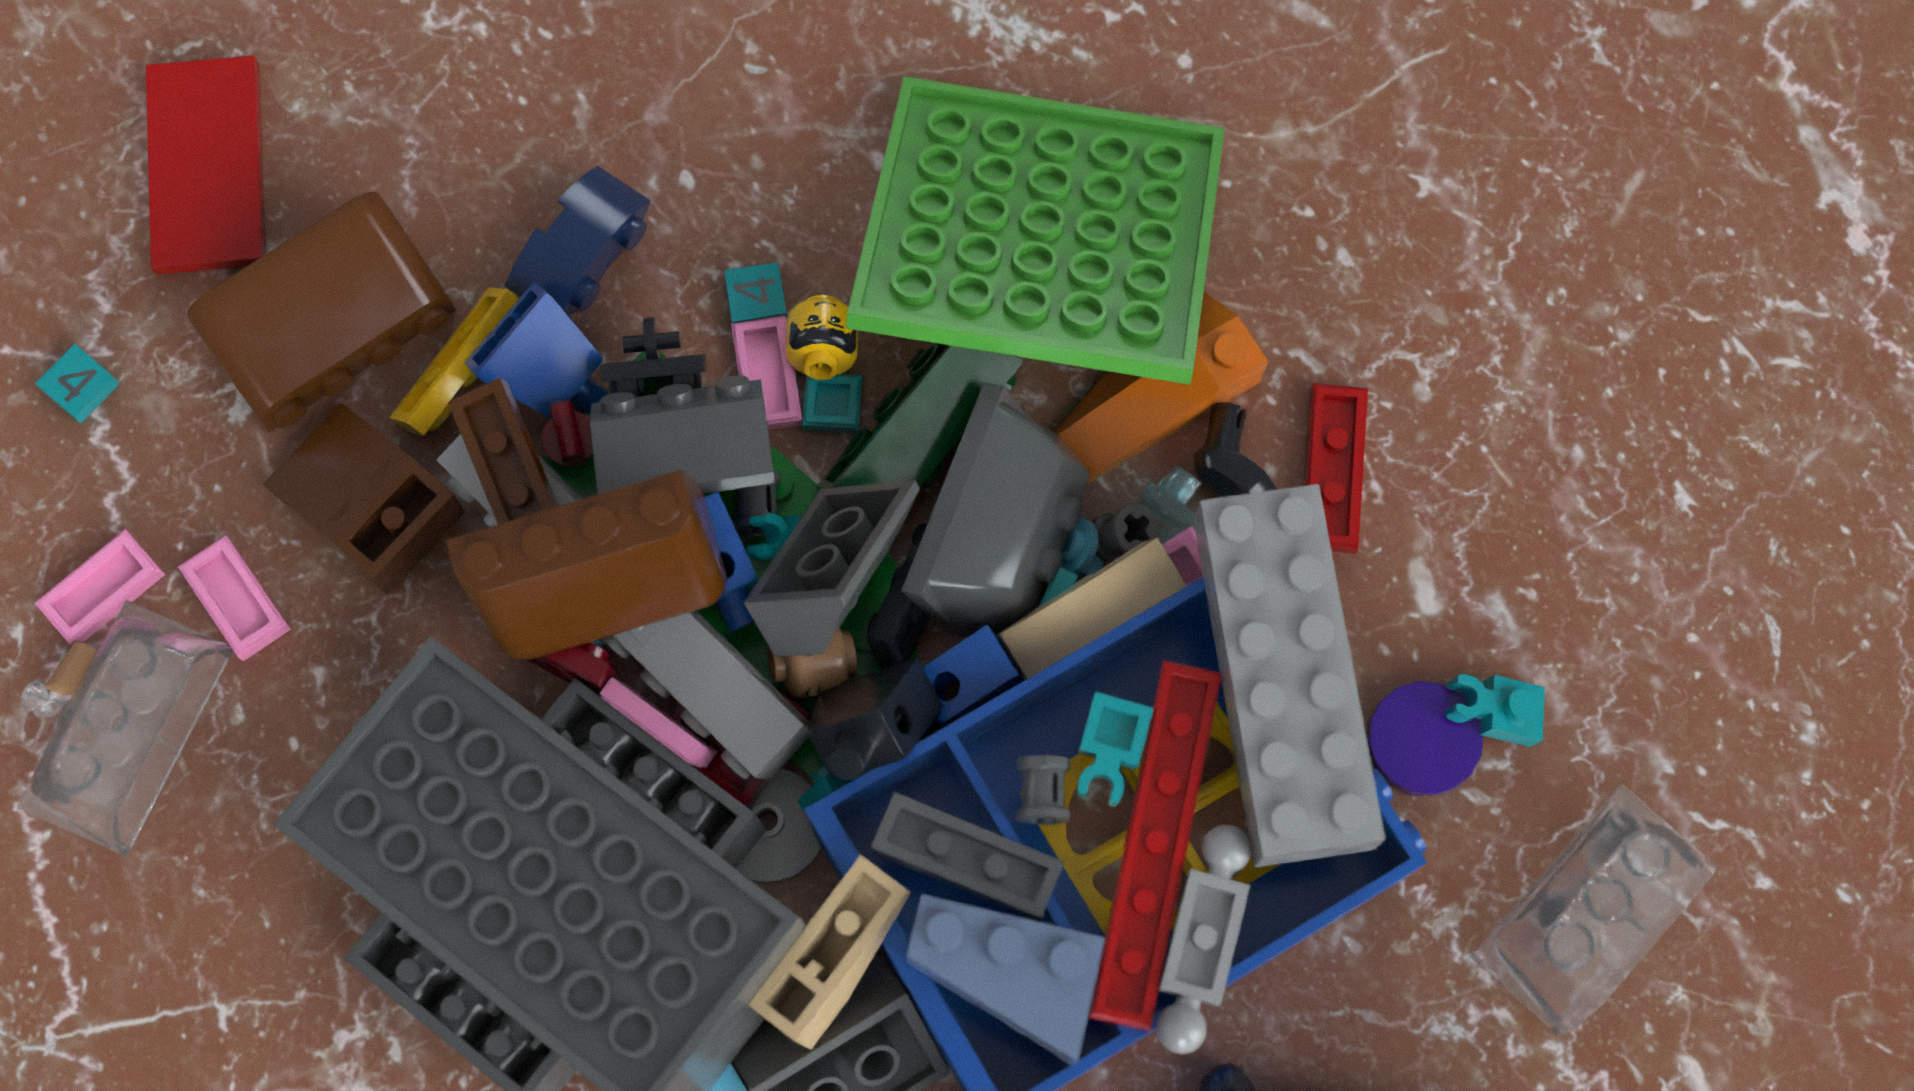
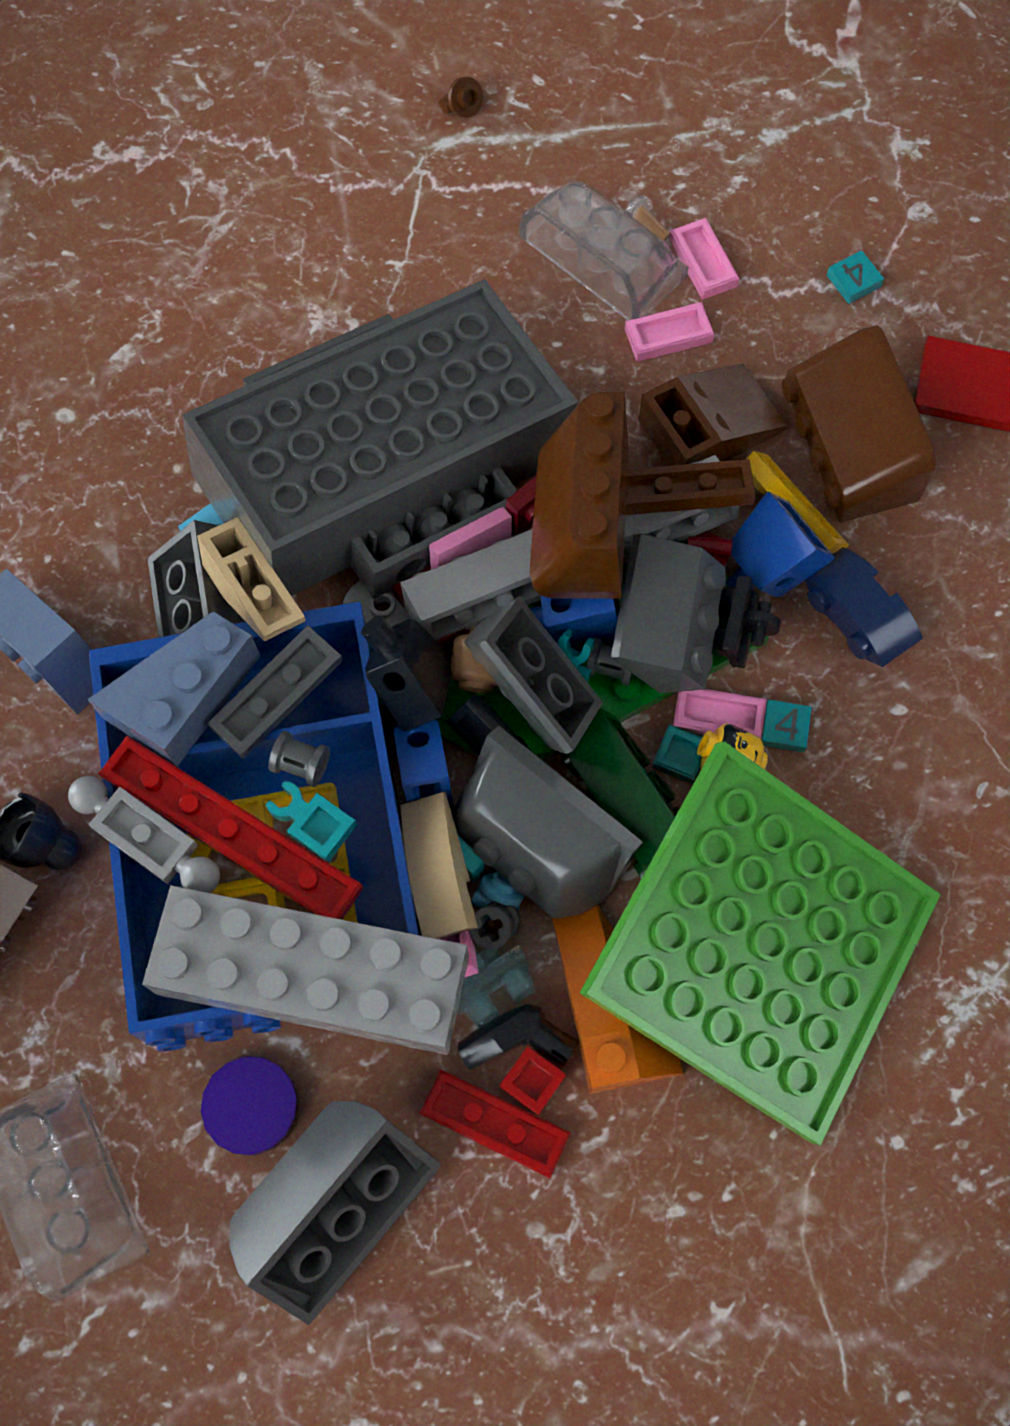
camera: 115 degrees right, 5 degrees down
(1276, 439) = (532, 1081): none -> red plate
(1499, 602) = (326, 1206): none -> dark grey windscreen
(1506, 707) = (242, 1173): teal plate -> none

